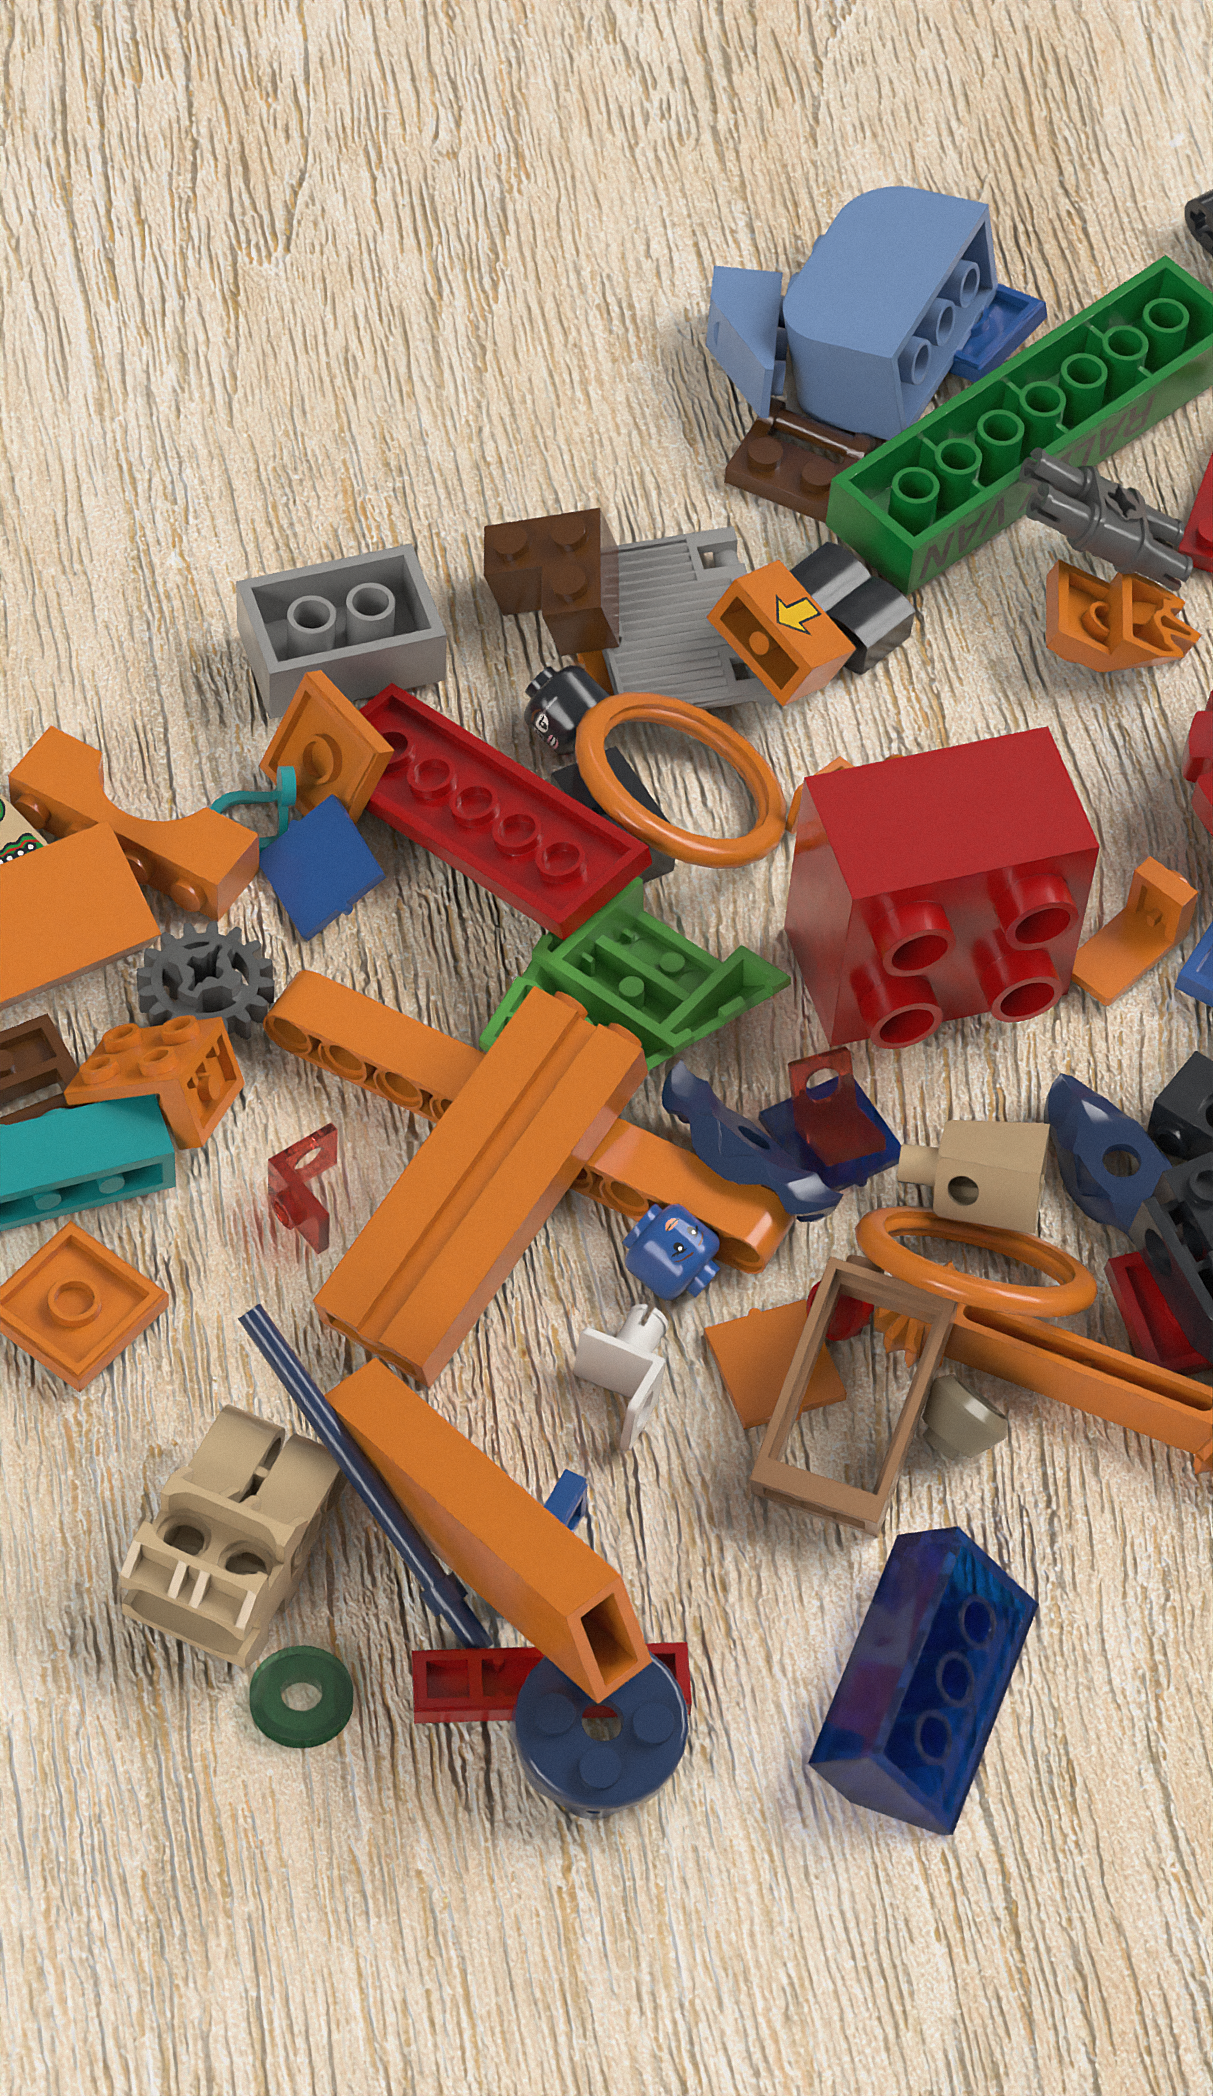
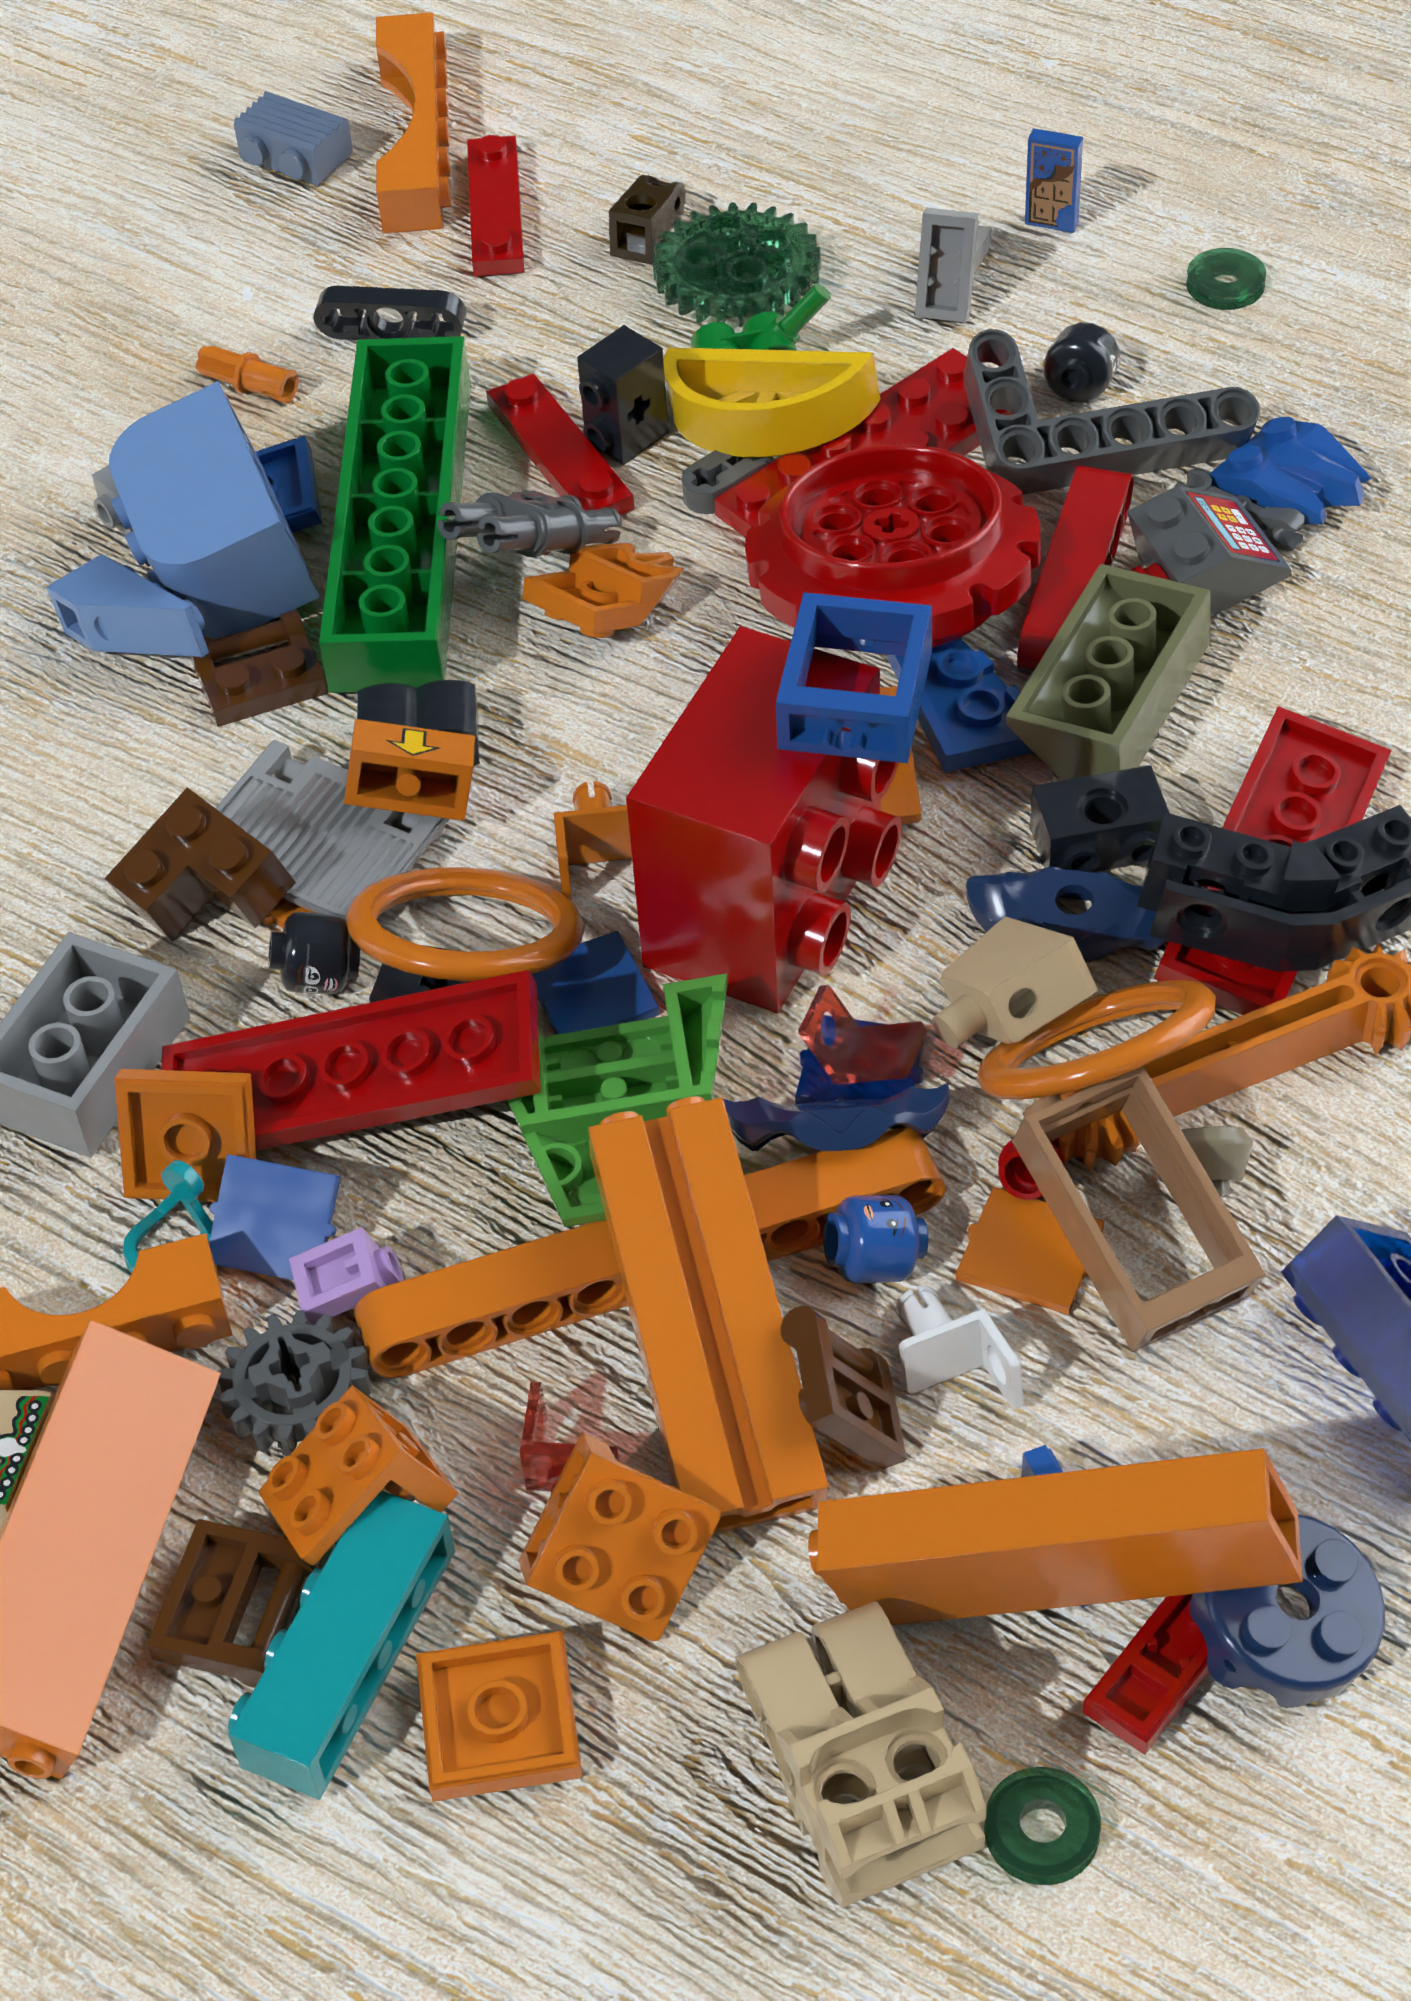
camera: 40 degrees left, 5 degrees down
(256, 1260) = (617, 1541): none -> orange bracket
(317, 943) = (341, 1273): none -> lavender bracket
(442, 1591) = (1045, 1632): dark blue bar -> none
(497, 1328) = (845, 1389): none -> reddish brown plate
(727, 908) = (595, 988): none -> blue piece
(1011, 871) = (880, 724): none -> blue window
(1083, 212) = (248, 373): none -> orange axle

